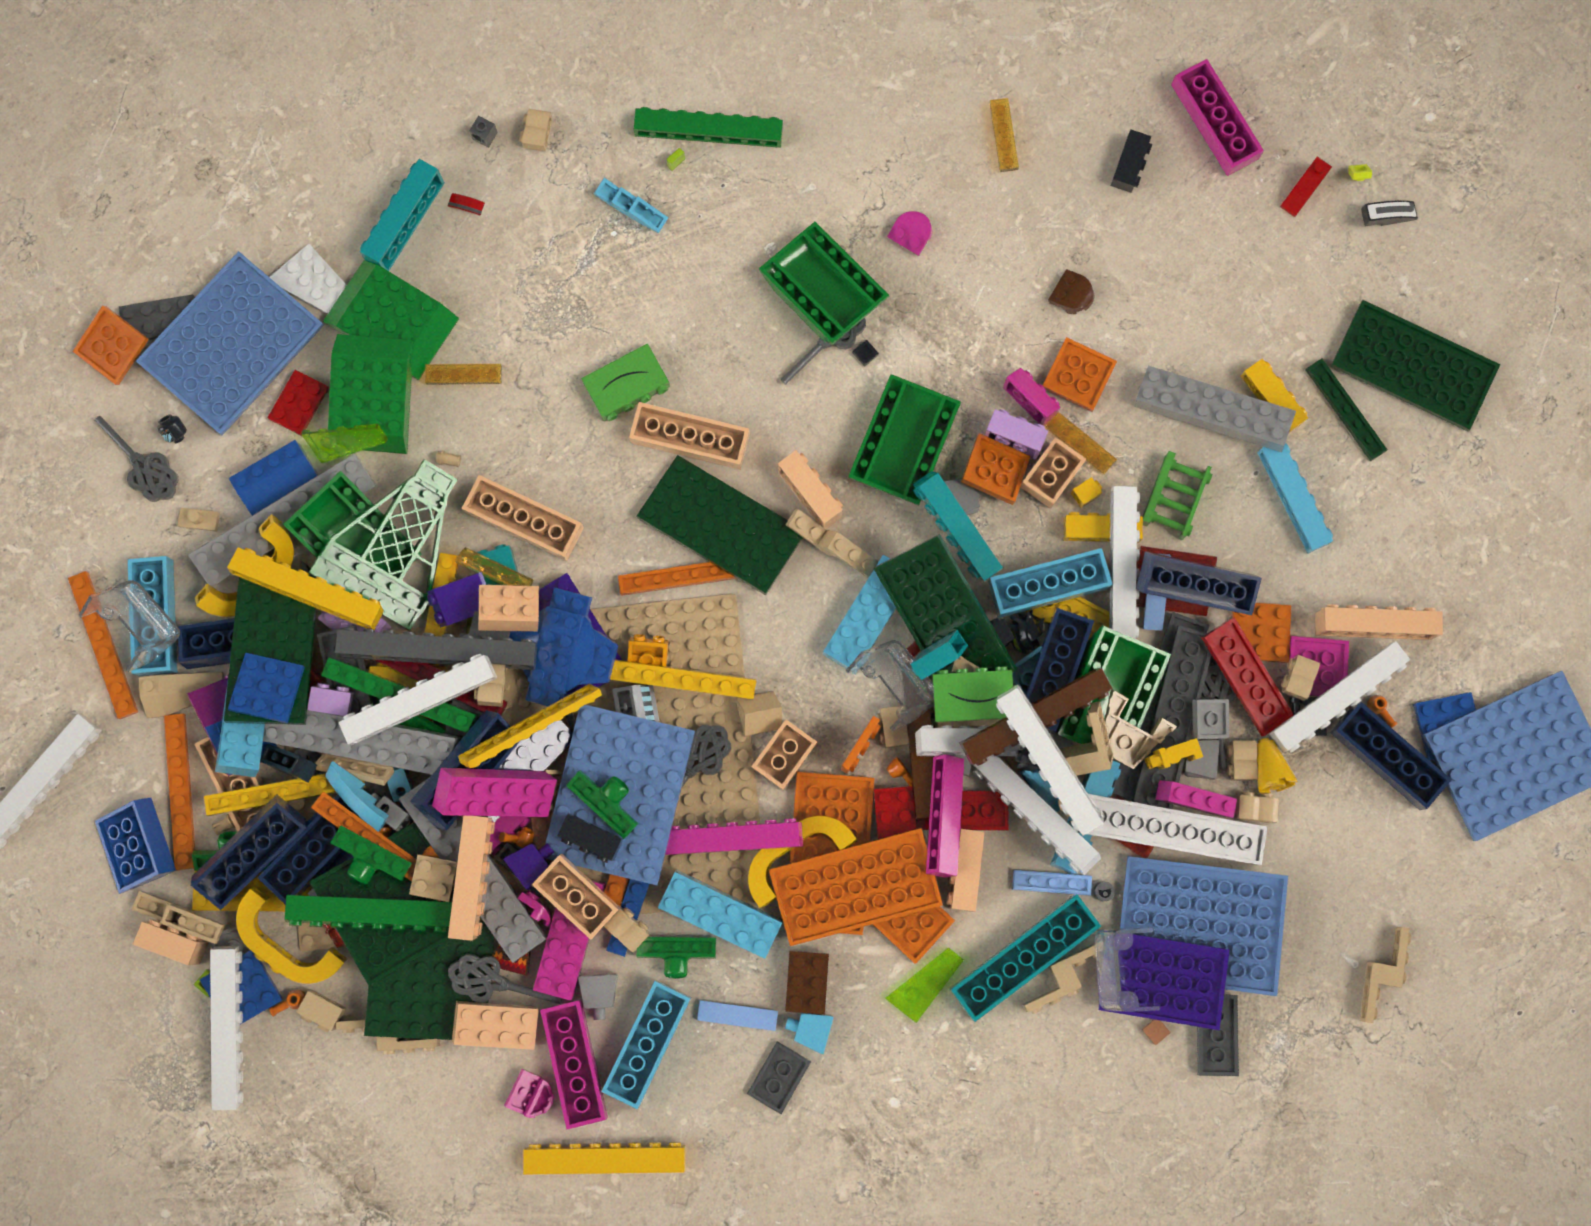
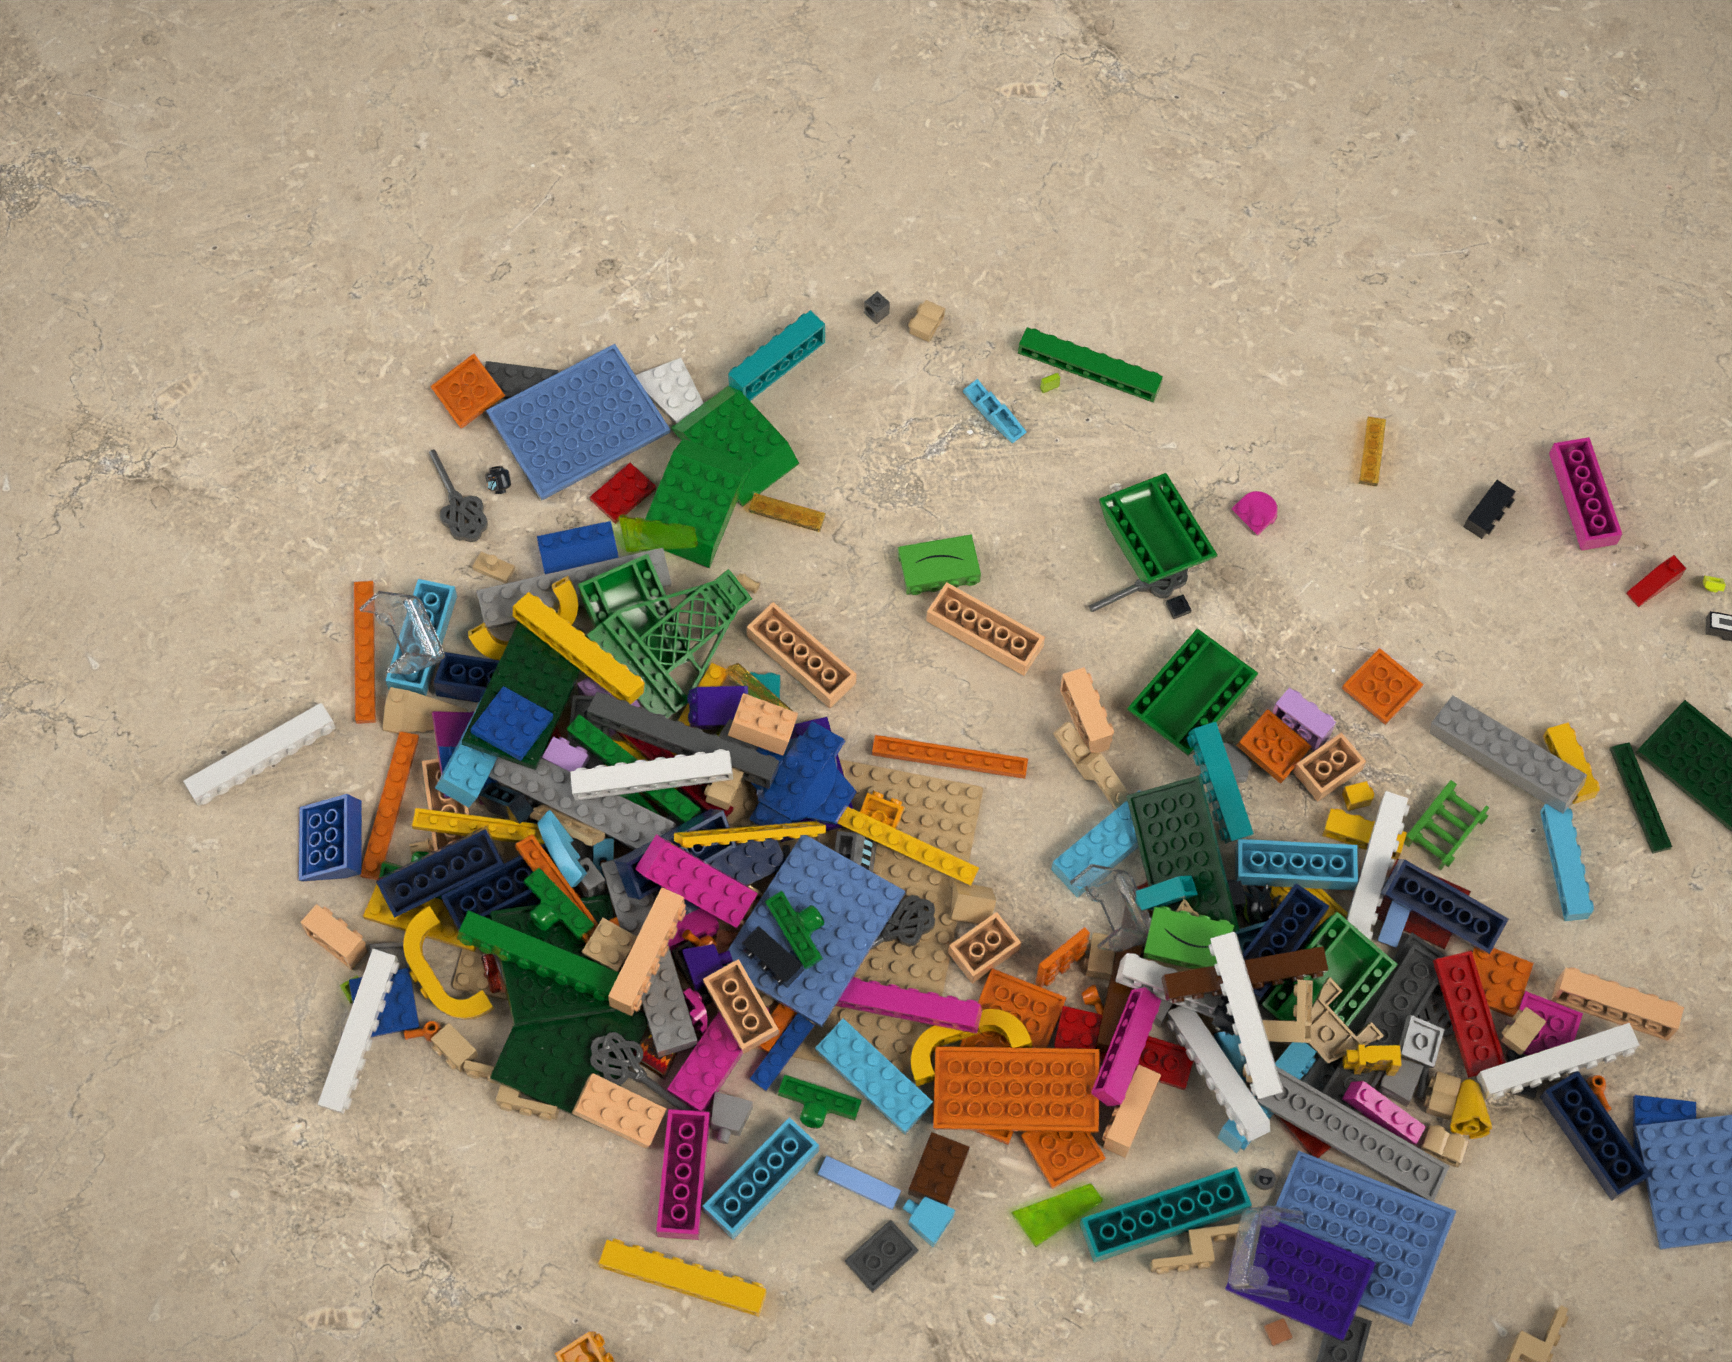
camera: 15 degrees right, 15 degrees down
(178, 917) = (351, 914): tan bracket -> none
(466, 203) = (839, 366): red sticker -> none
(530, 1095) = (629, 1192): dark pink slope -> none
(627, 929) = (778, 1059): tan brick -> none
(720, 524) = (989, 719): dark green plate -> none
(1031, 396) = (1328, 690): dark pink slope -> none
(1052, 882) = (1213, 1153): light blue tile -> none
(1072, 293) = (1398, 611): reddish brown slope -> none
(1081, 443) = (1375, 761): clear yellow plate -> none

